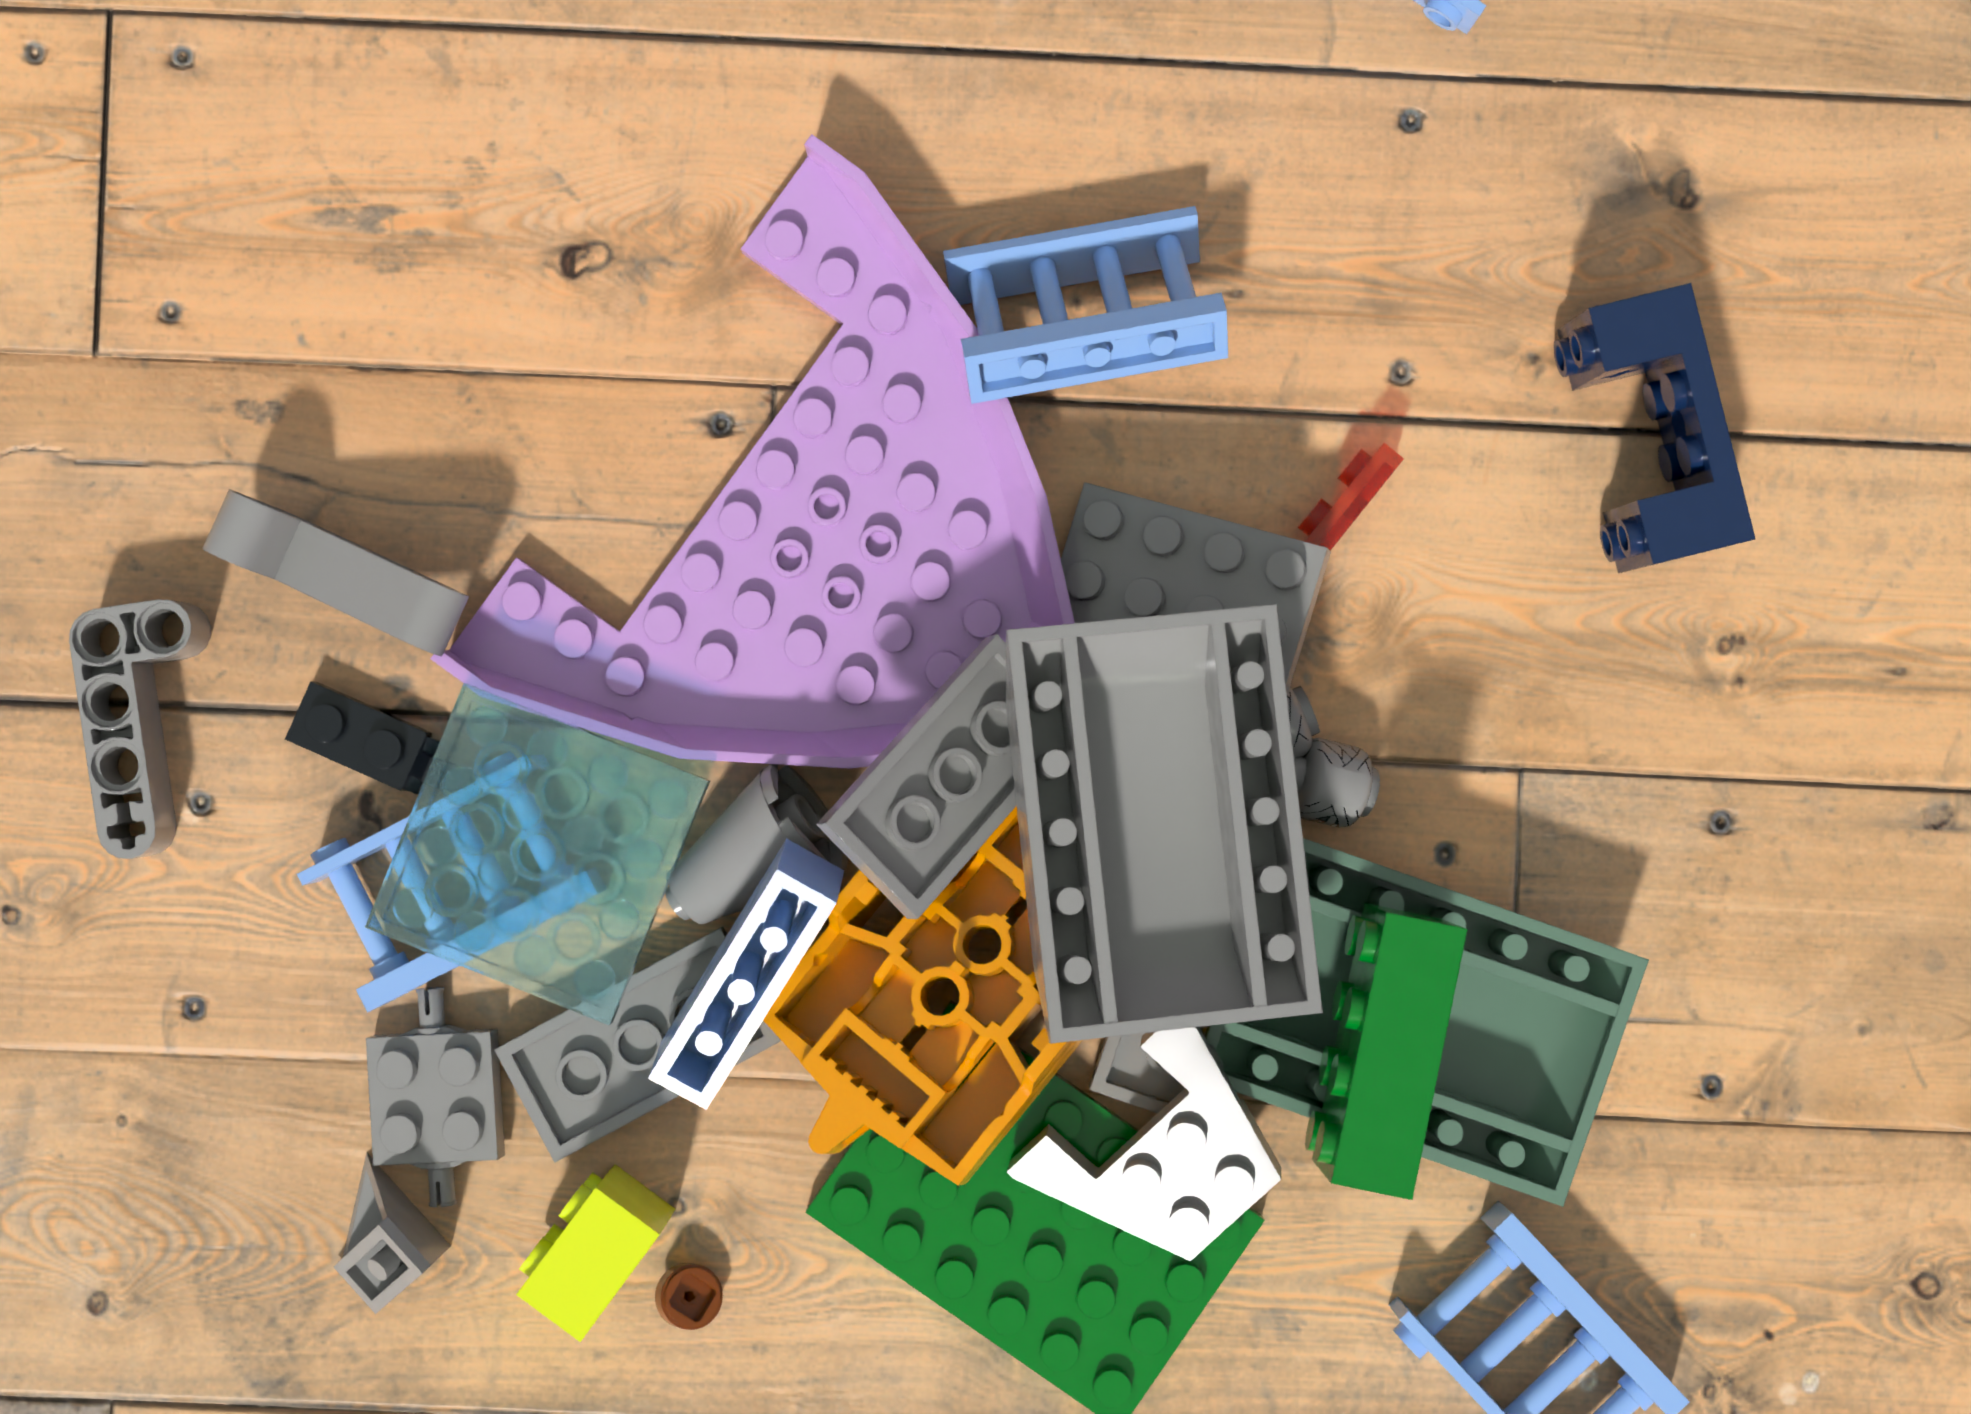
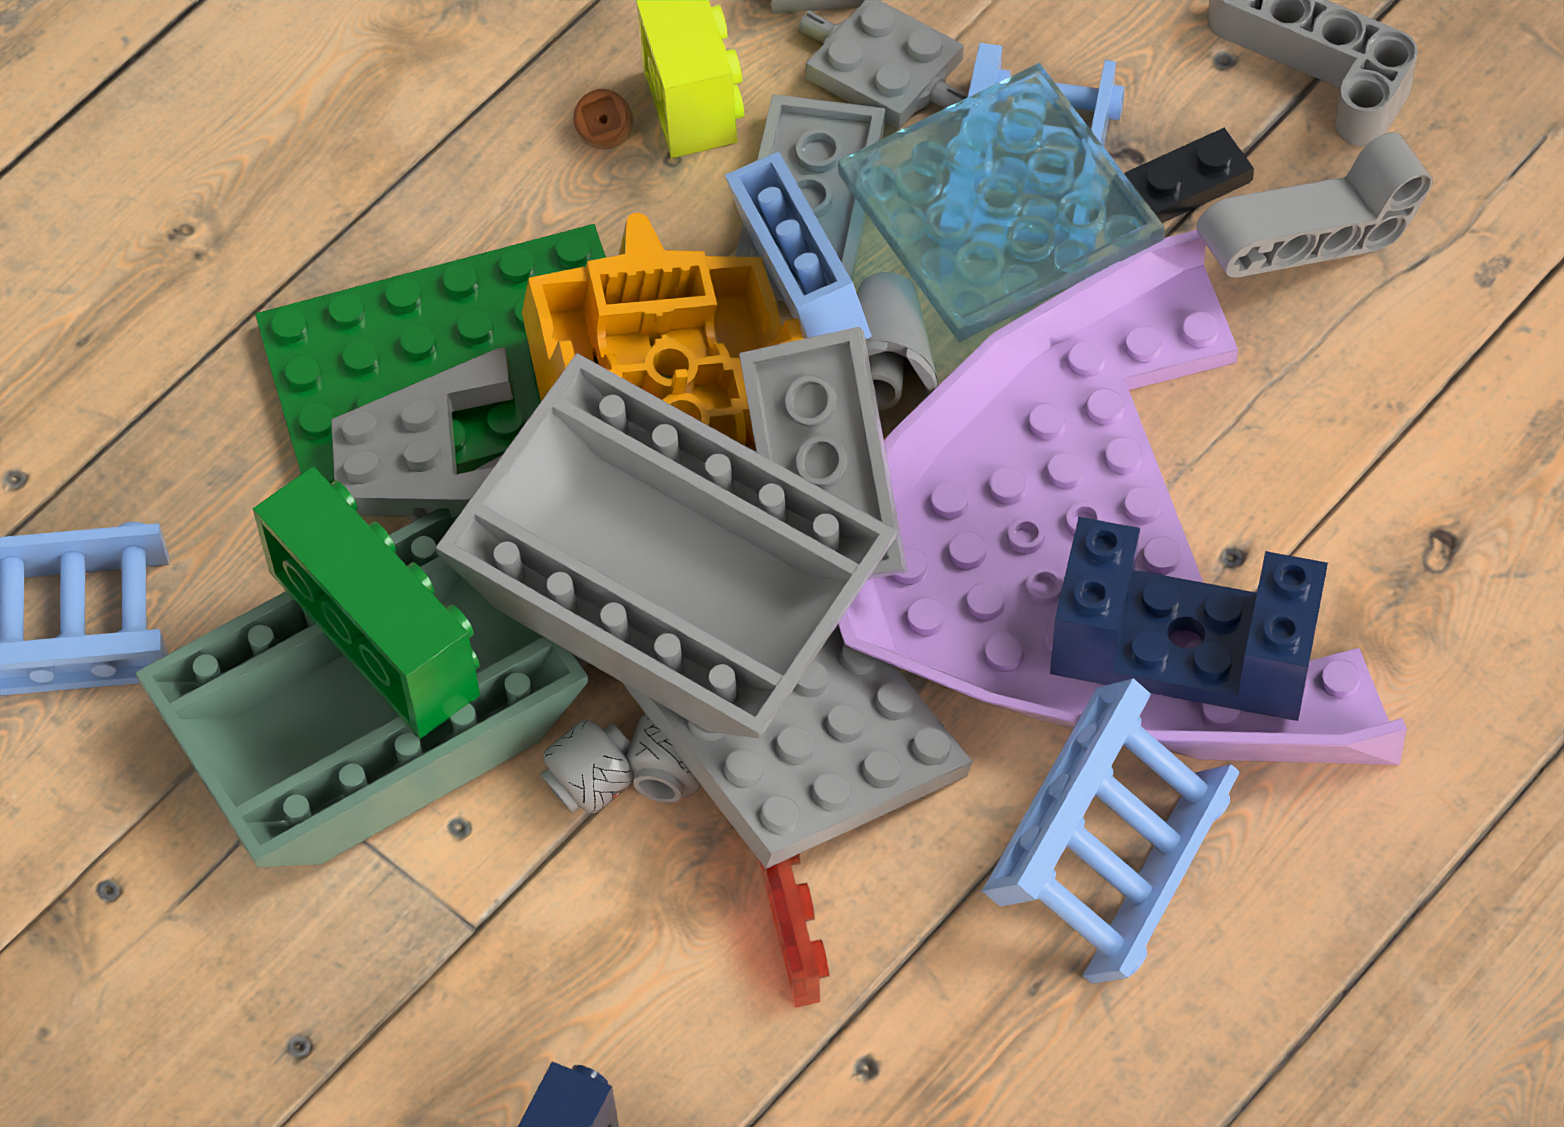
camera: 130 degrees right, 30 degrees down
(813, 317) = (1120, 619): none -> dark blue plate

